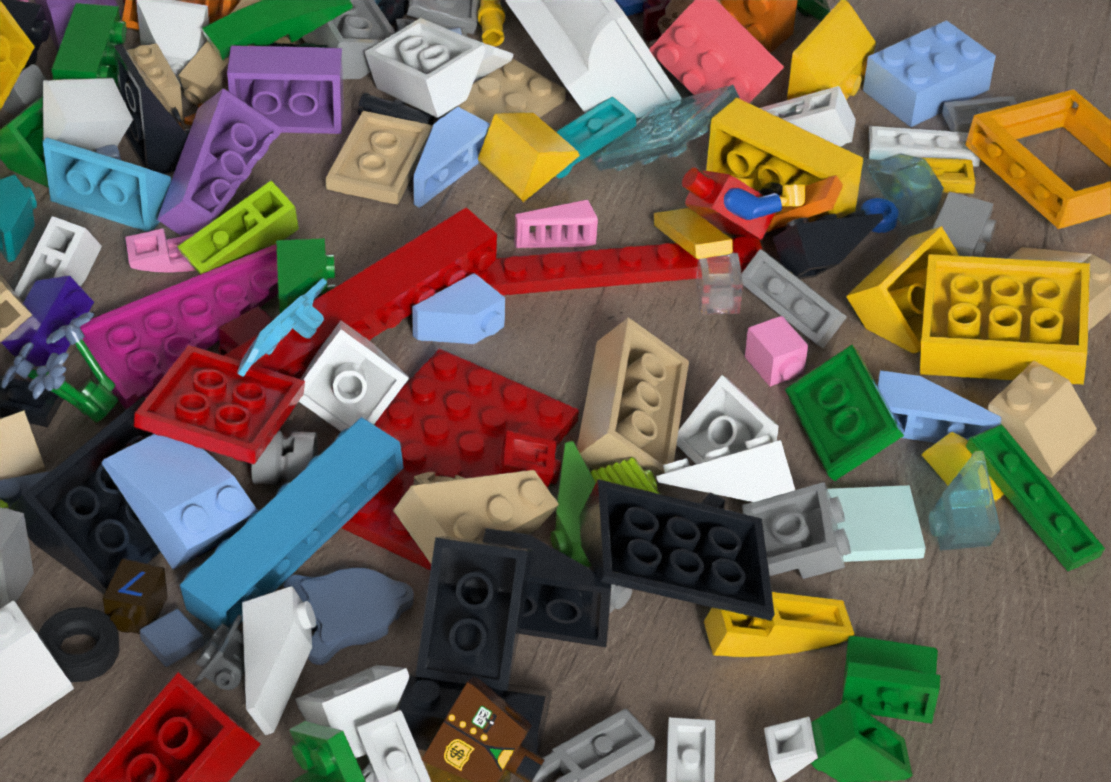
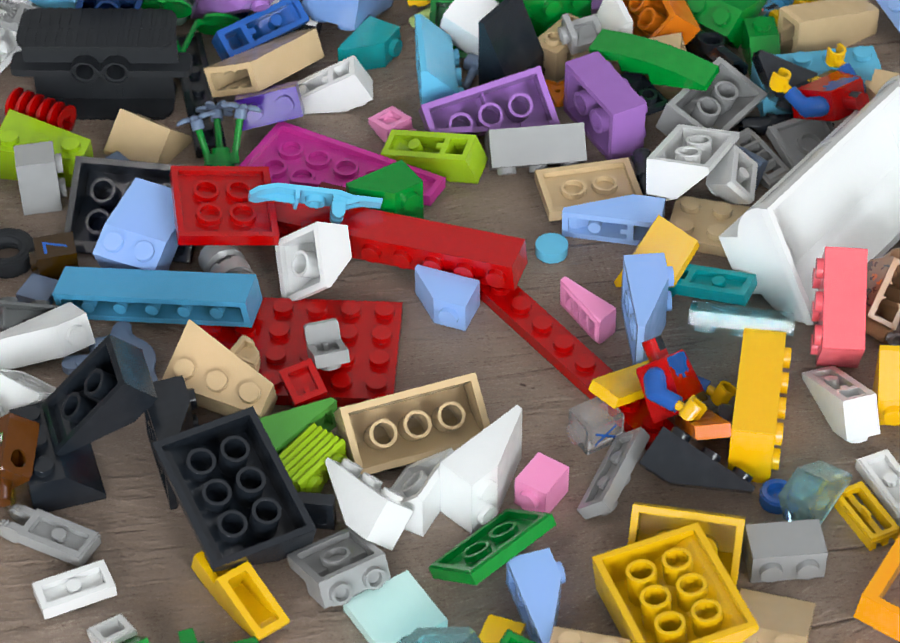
camera: 65 degrees right, 0 degrees up
(178, 50) = (579, 33): none -> light grey bracket
(296, 157) = (535, 147): none -> light grey slope
(435, 213) = (551, 248): none -> medium azure tile
(490, 420) = (325, 344): none -> light grey bracket
(613, 180) = (645, 299): none -> light blue slope
(754, 364) = (481, 471): none -> white slope

